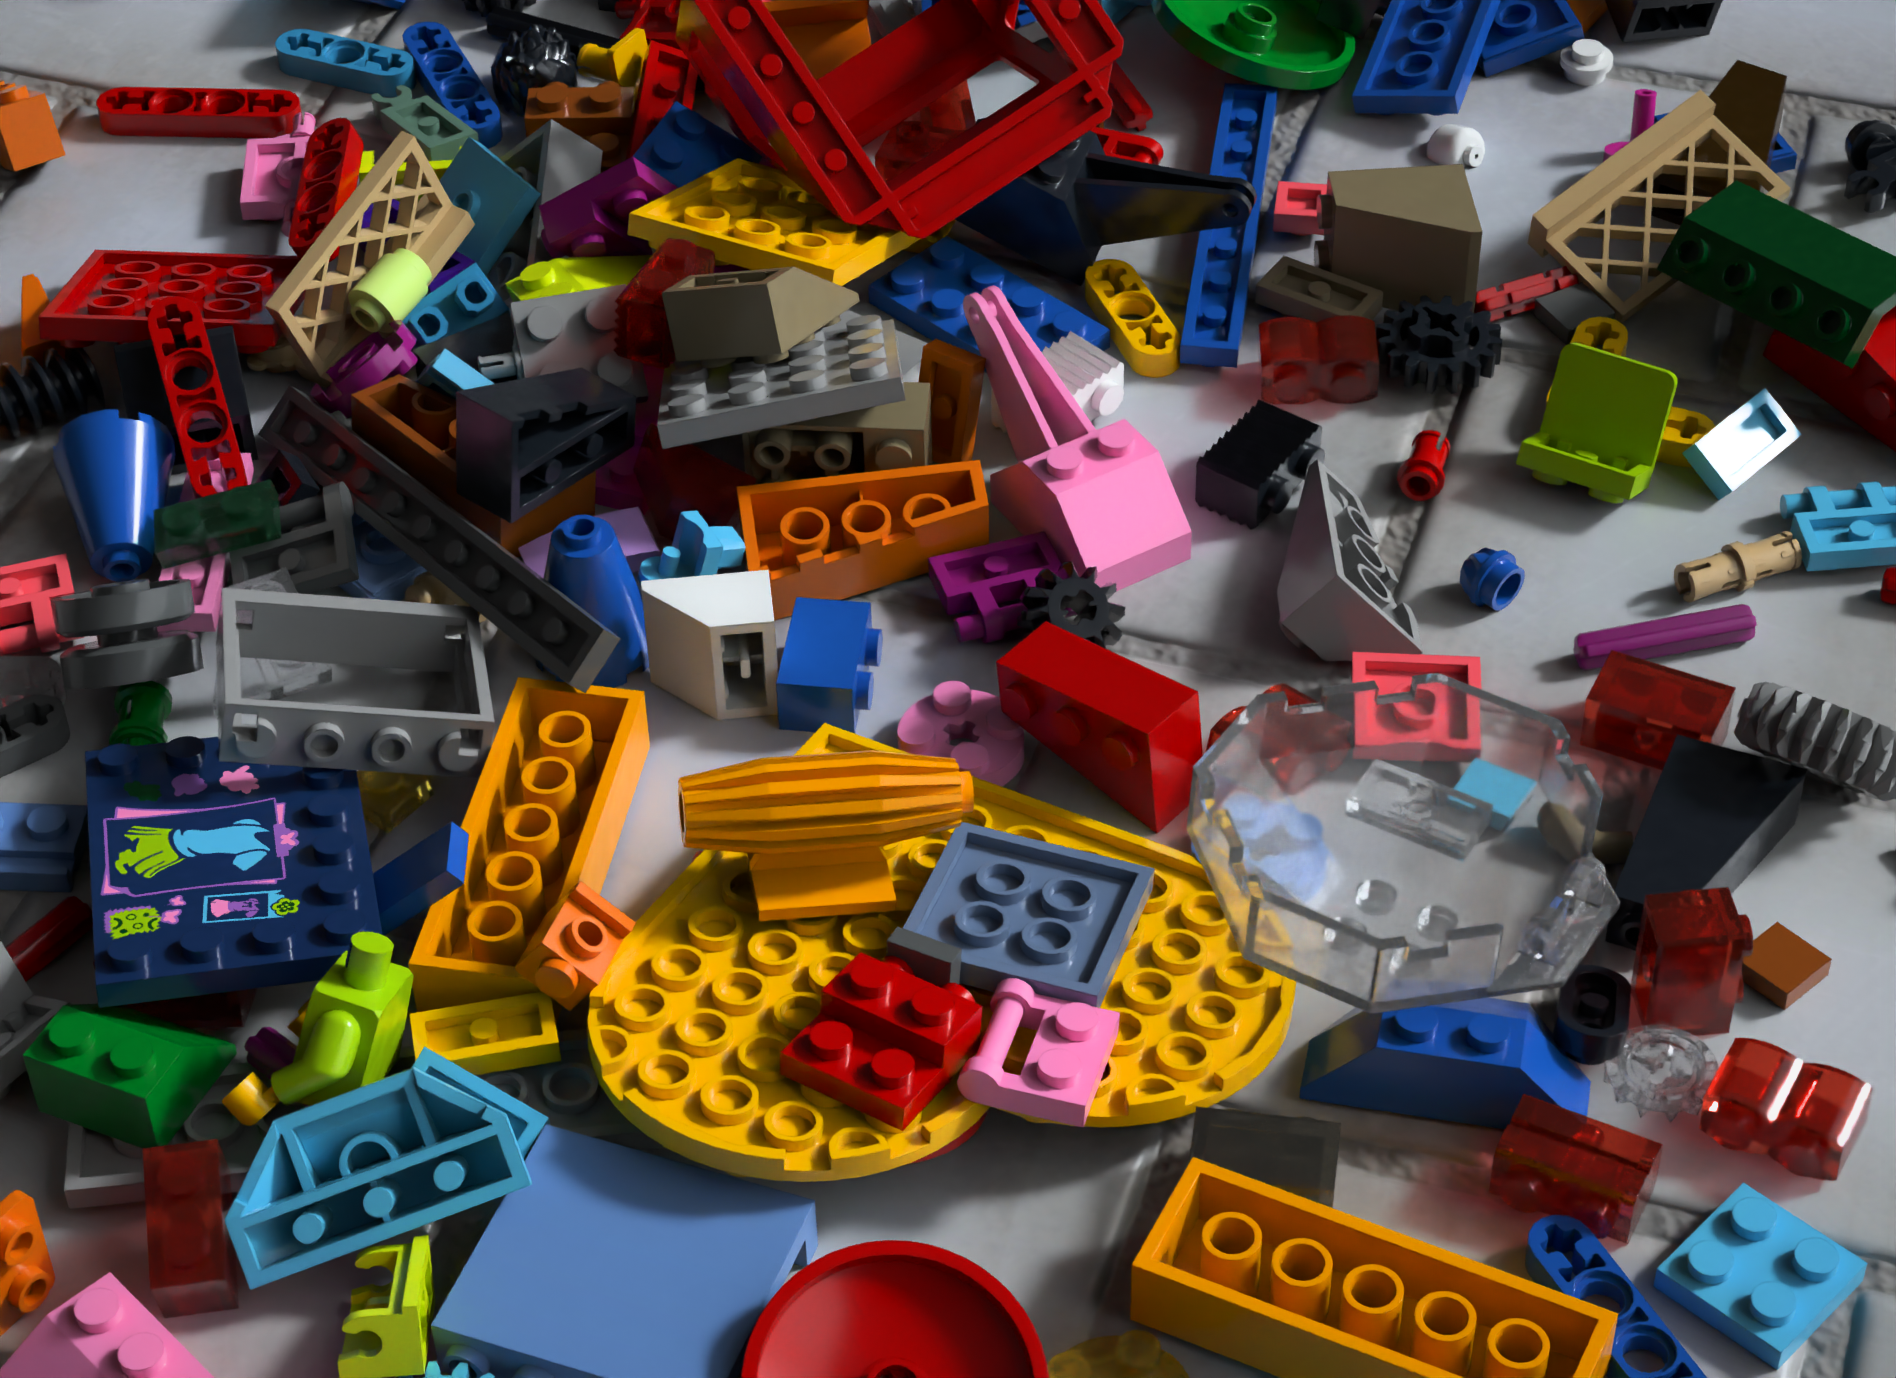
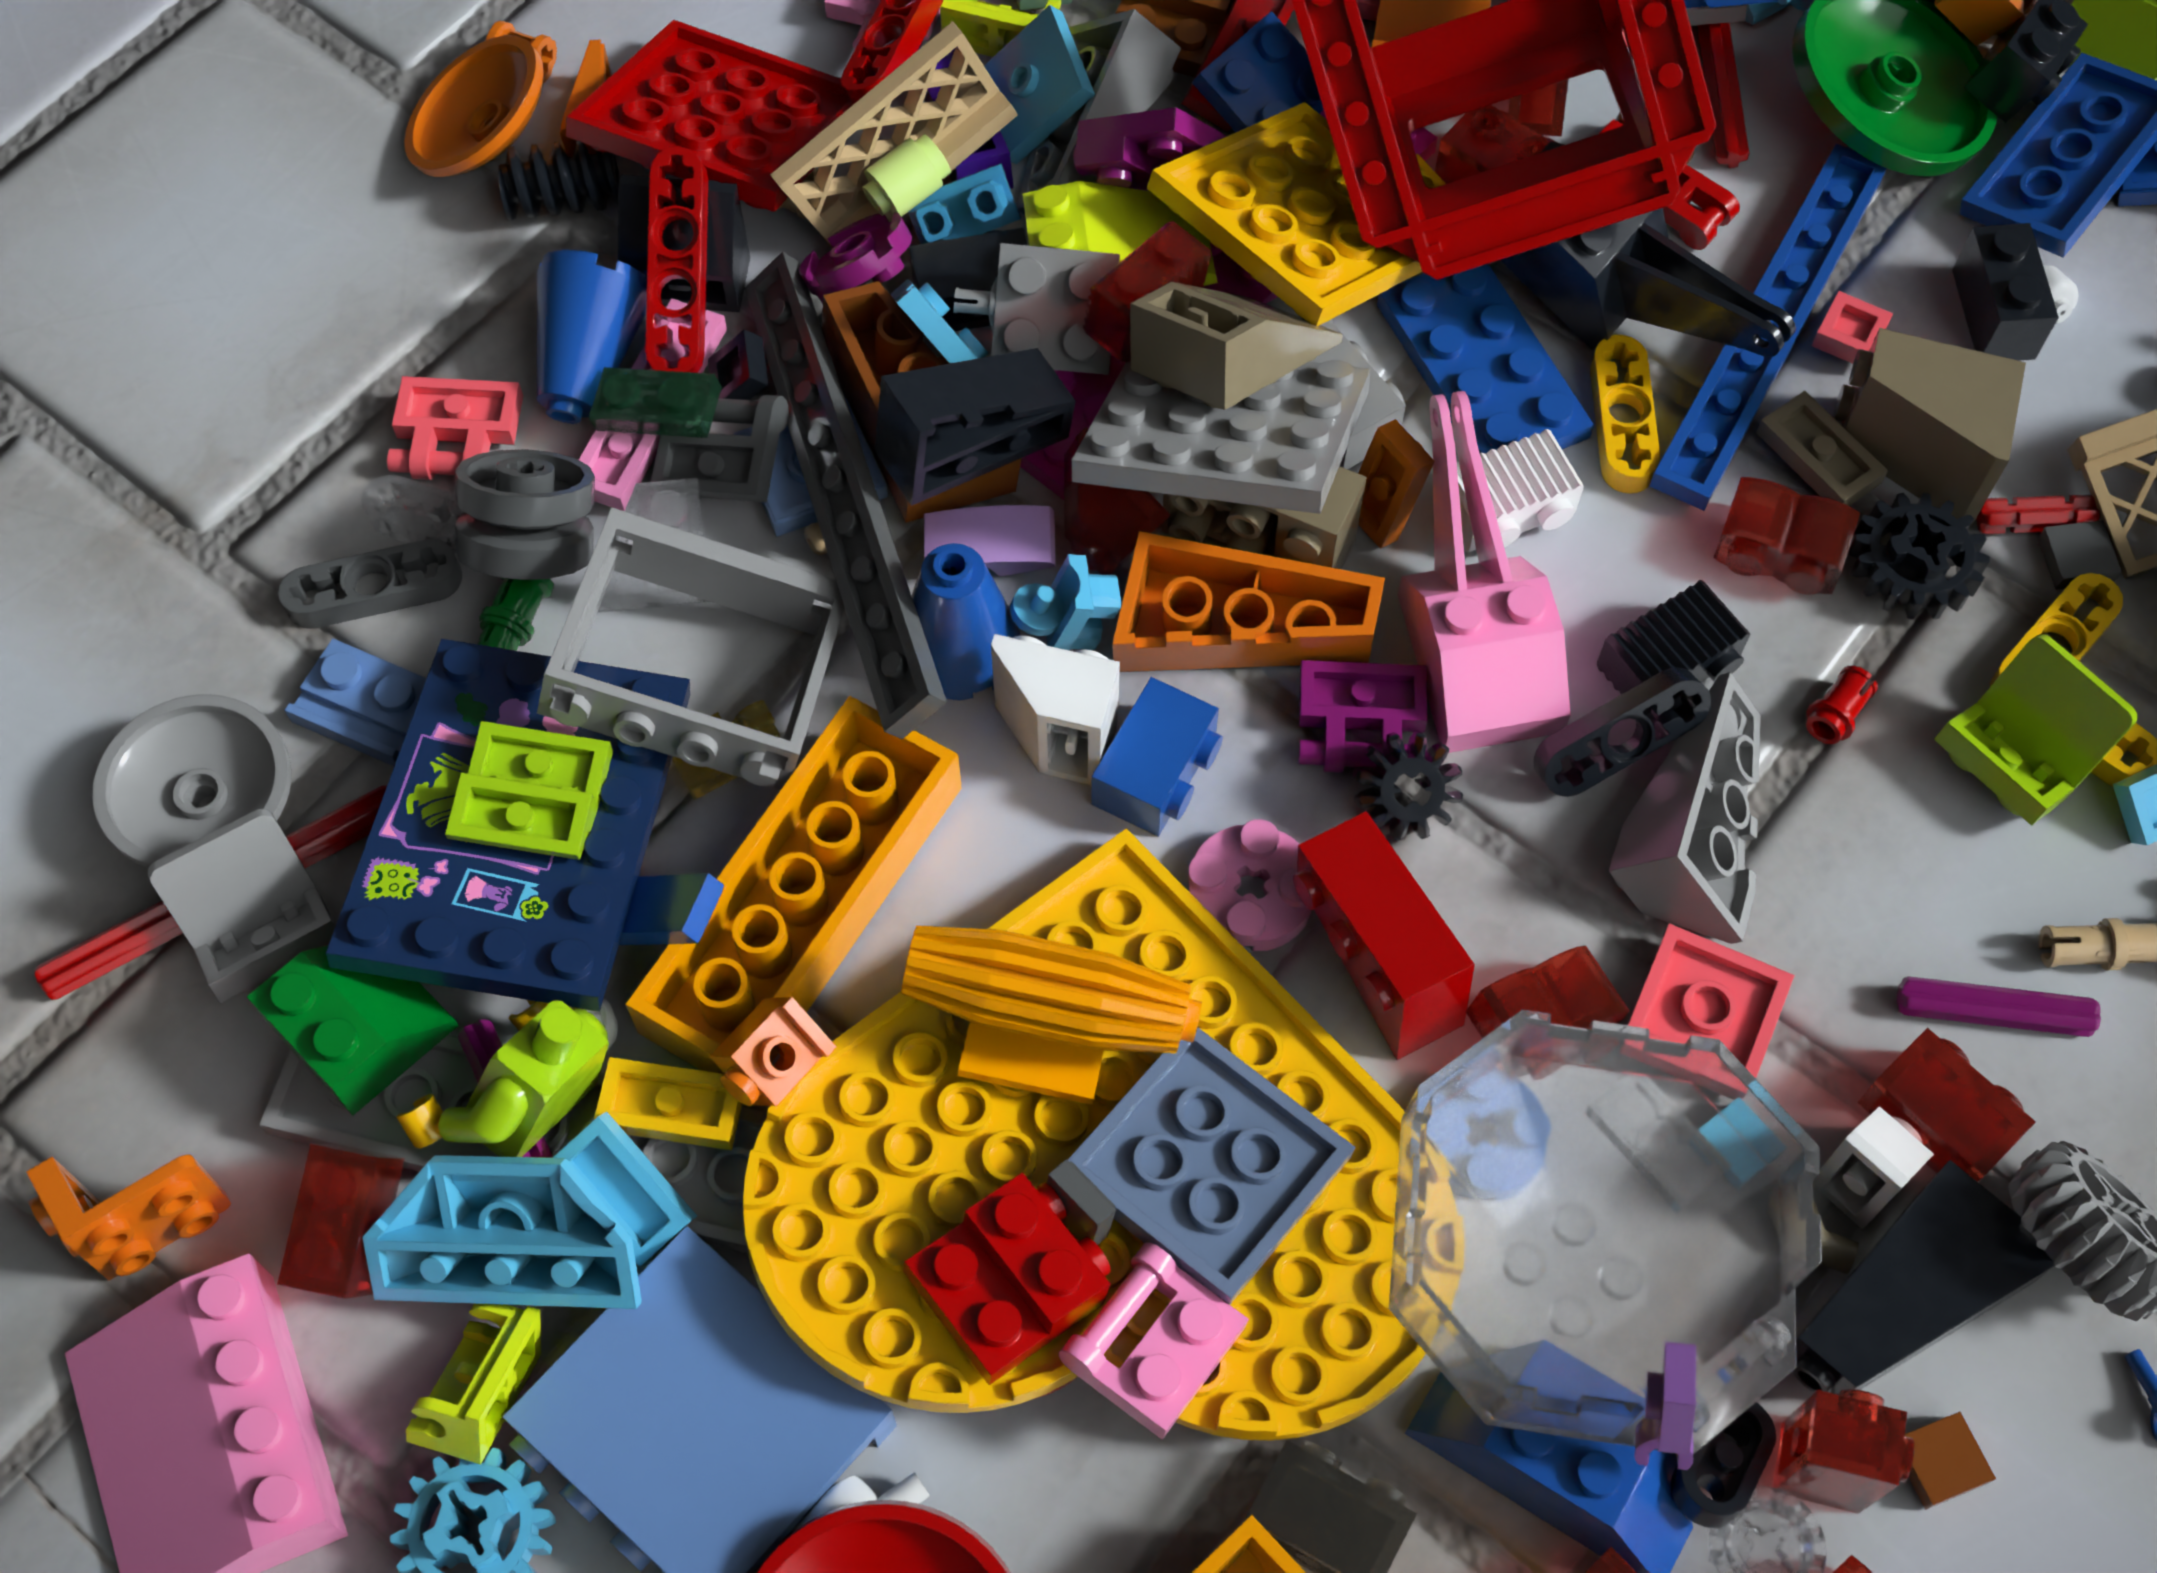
camera: 20 degrees right, 20 degrees up
(239, 819) = (530, 790): none -> lime slope
(1218, 534) = (1647, 738): none -> black beam
(1415, 132) = (2005, 291): none -> black brick
(1491, 578) = (1849, 872): blue plate -> none
(1526, 911) = (1669, 1407): none -> medium lavender plate
(1621, 762) = (1872, 1166): none -> white slope

